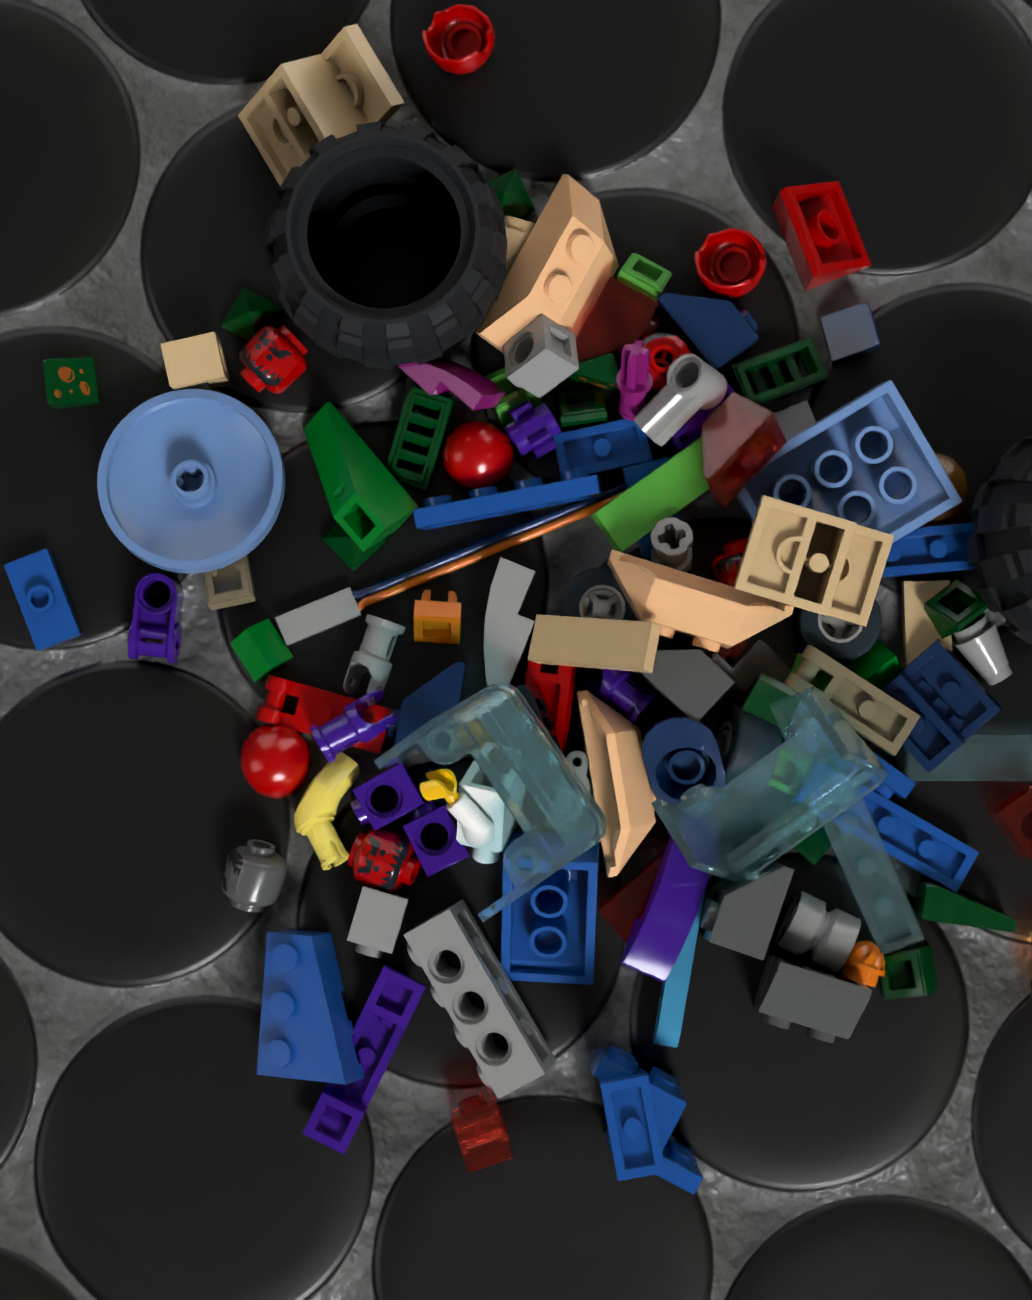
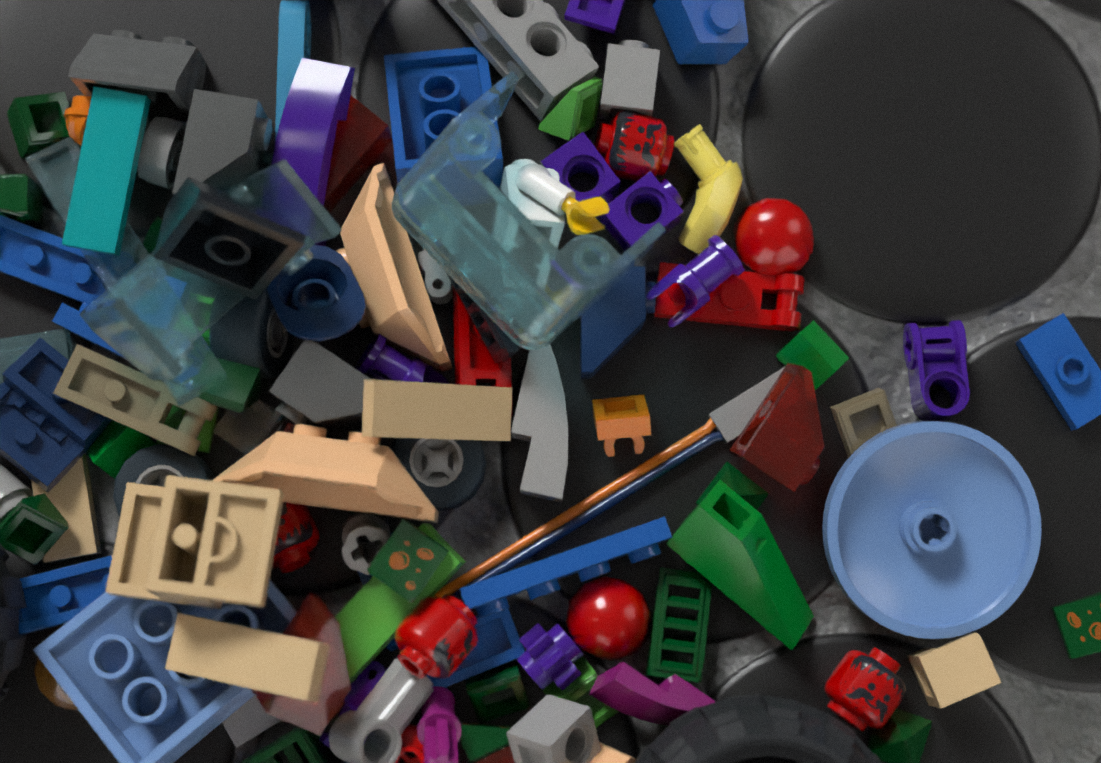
camera: 170 degrees right, 5 degrees down
(253, 876) = (773, 106): dark grey head -> none
(300, 585) = (785, 431): none -> clear red slope
(373, 655) = (686, 369): light grey piece -> none
(431, 896) = (575, 111): none -> bright green slope
(624, 456) = (436, 637): none -> red head
(639, 519) = (407, 560): none -> dark green slope
(751, 815) = (225, 239): none -> black slope
(782, 460) = (248, 657): none -> tan tile
(851, 904) = (106, 171): none -> teal tile

